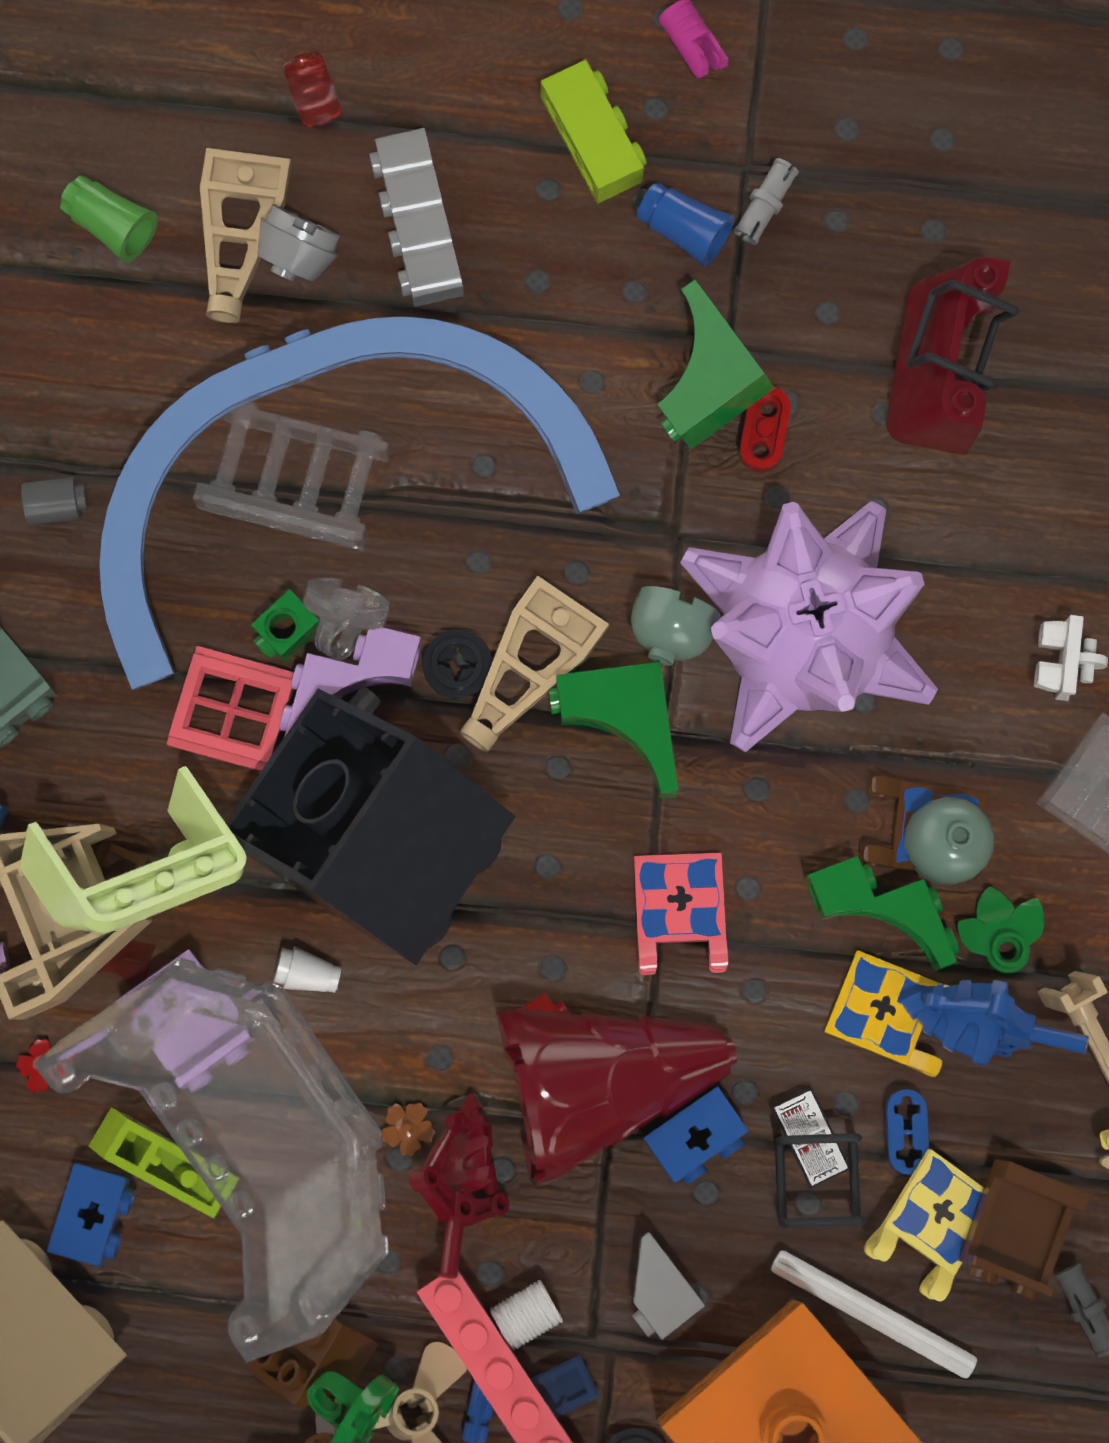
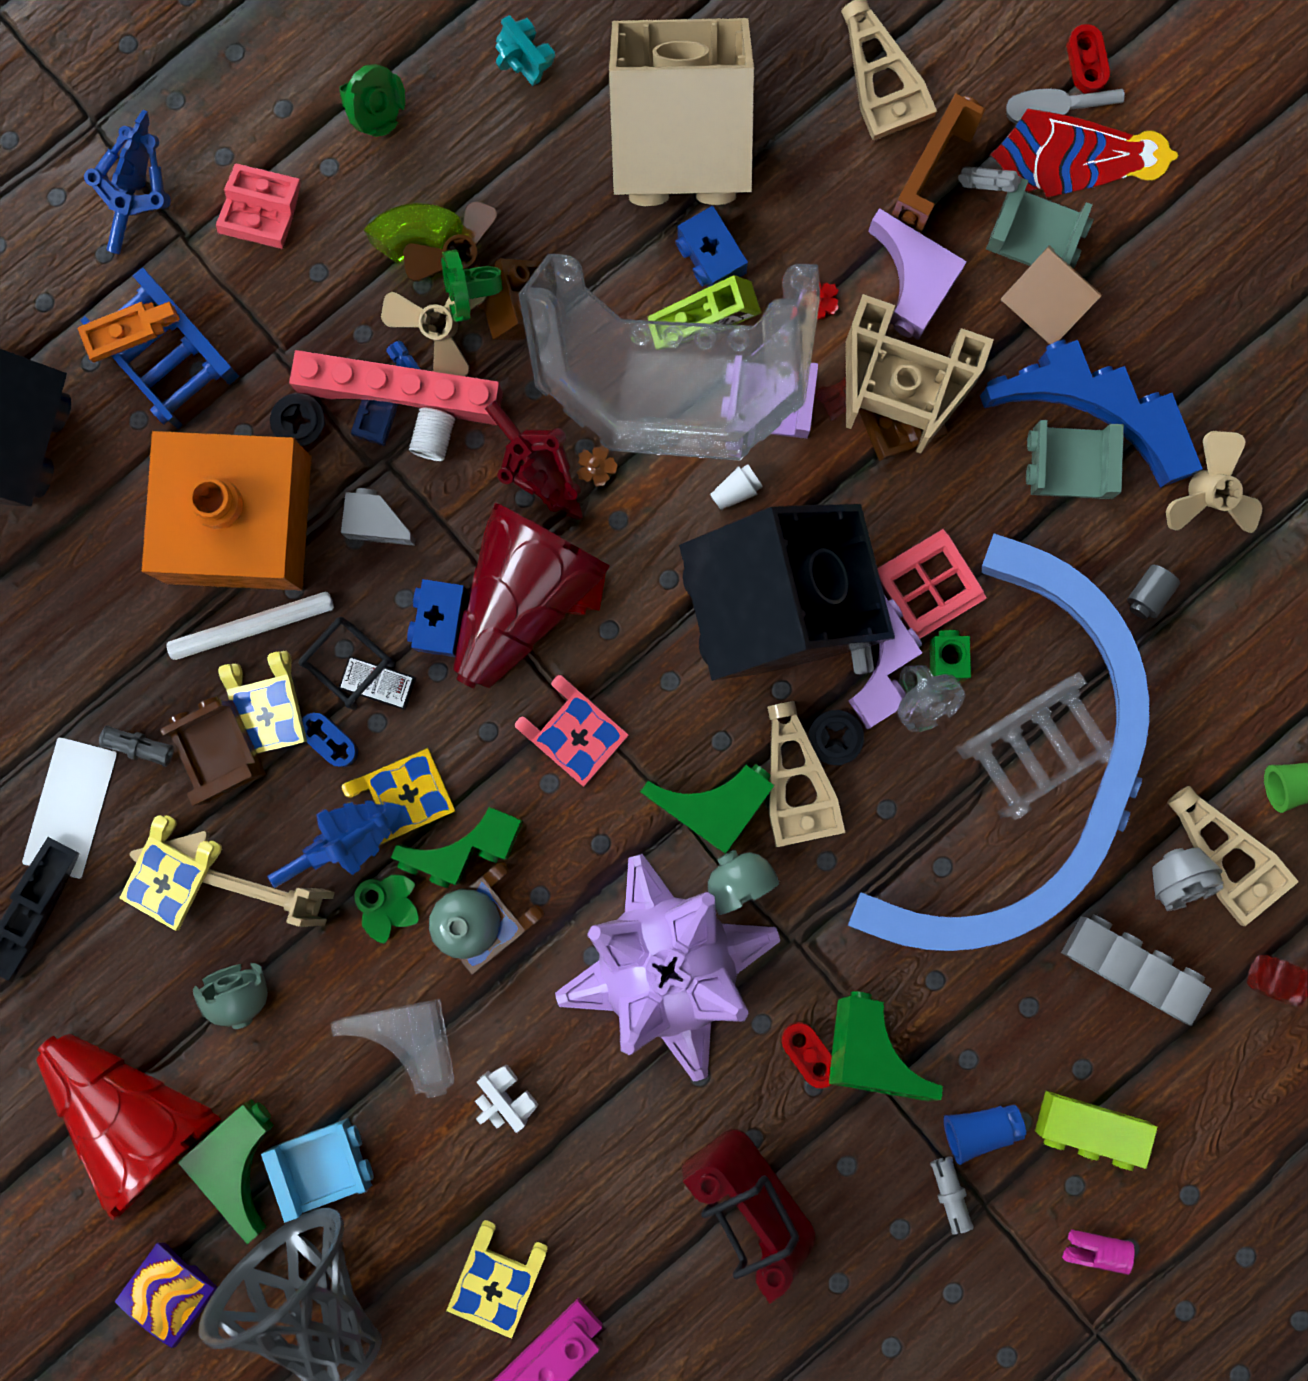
camera: 140 degrees right, 5 degrees up
(192, 869) = (849, 474): yellowish green windscreen -> none

